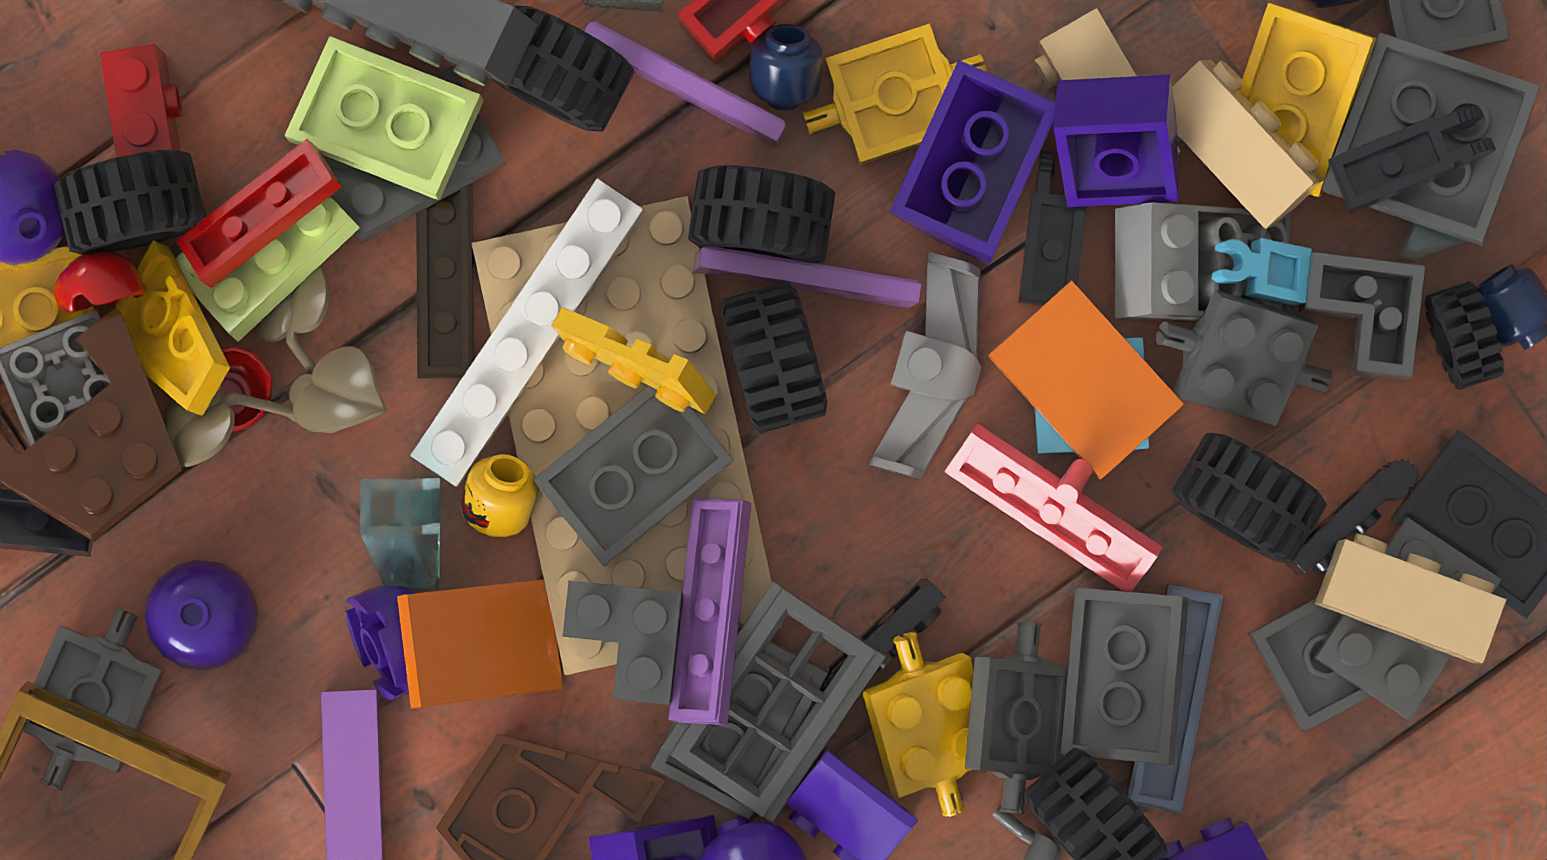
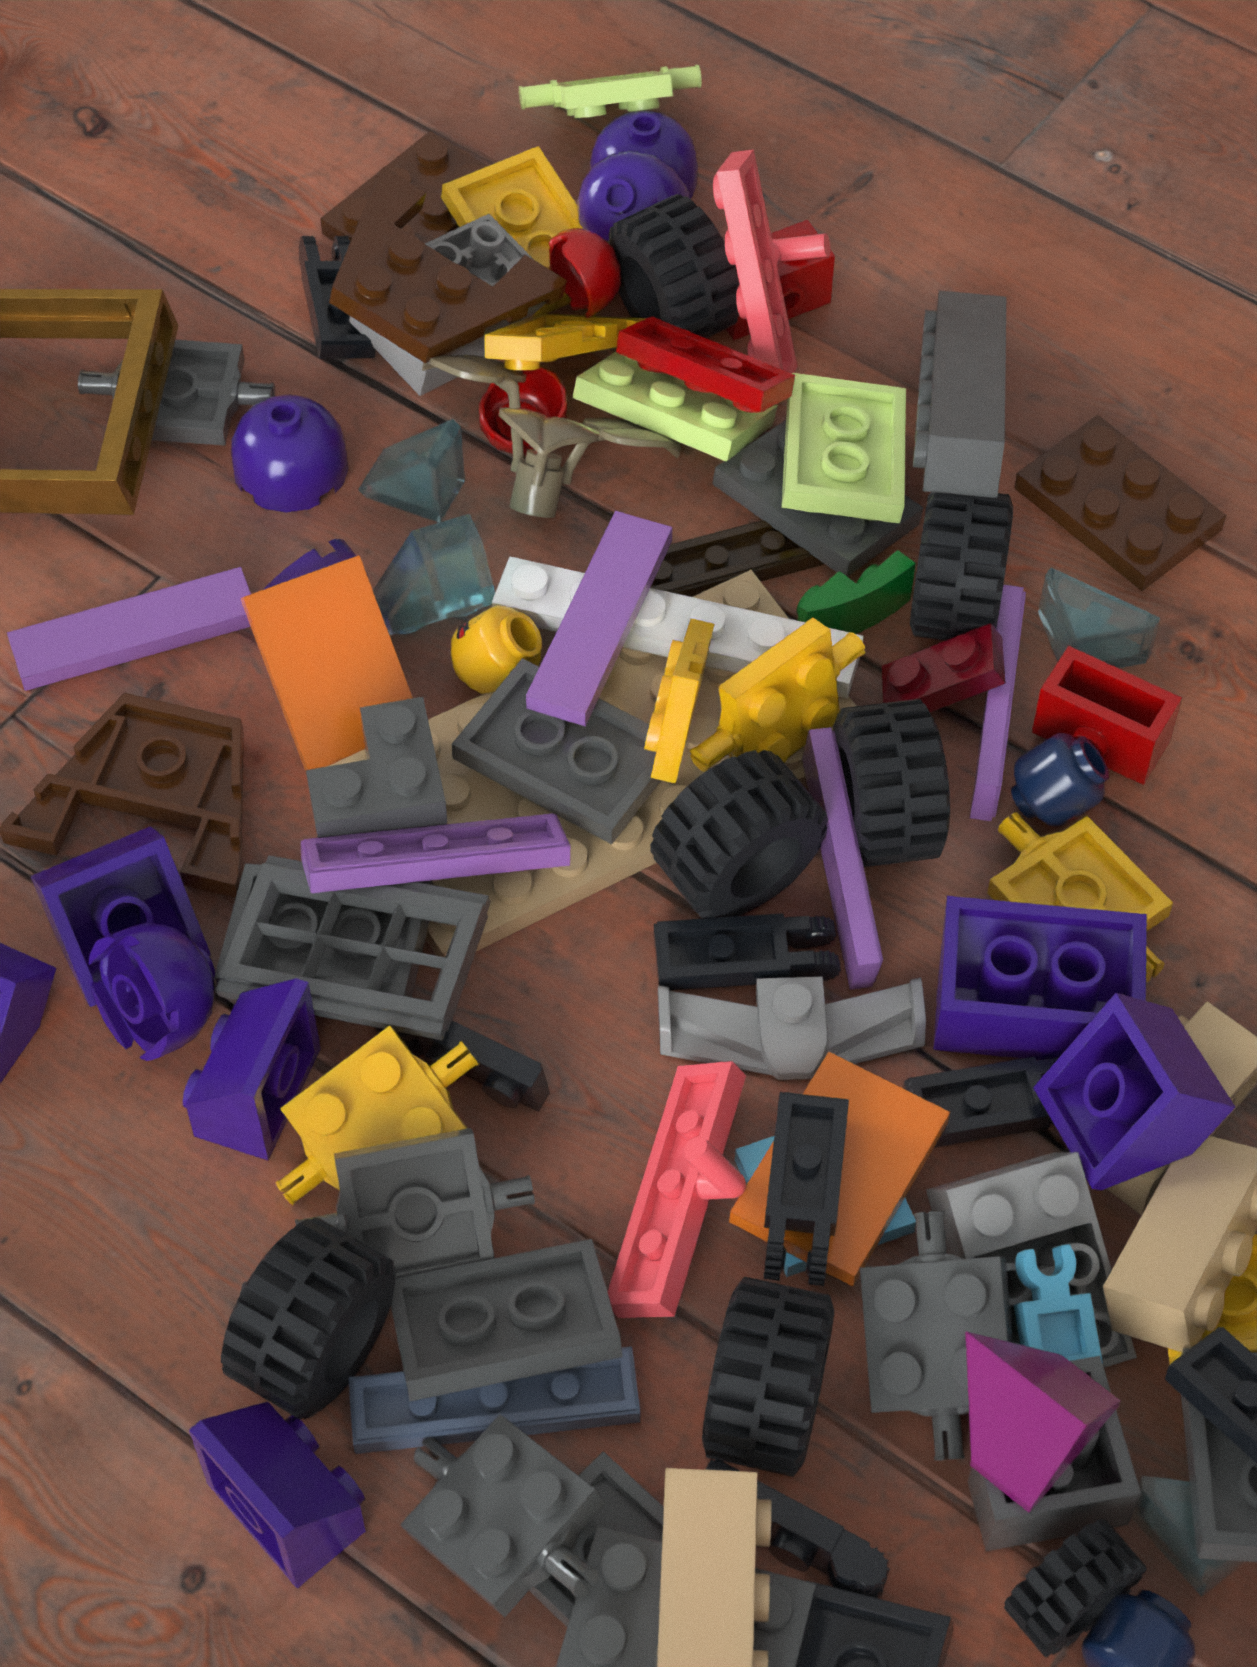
camera: 70 degrees right, 30 degrees down
(170, 132) = (756, 259): none -> coral plate
(262, 509) = (419, 472): none -> clear light blue slope
(518, 400) = (599, 618): none -> medium lavender tile
(542, 187) = (860, 605): none -> green slope
(650, 123) = (947, 670): none -> dark red plate
(659, 262) = (780, 696): none -> yellow plate
(855, 390) = (742, 950): none -> black hinge
(1103, 415) = (805, 1178): none -> black hinge
(1282, 722) = (504, 1515): none -> dark grey plate
(1354, 321) = (1029, 1415): none -> magenta slope

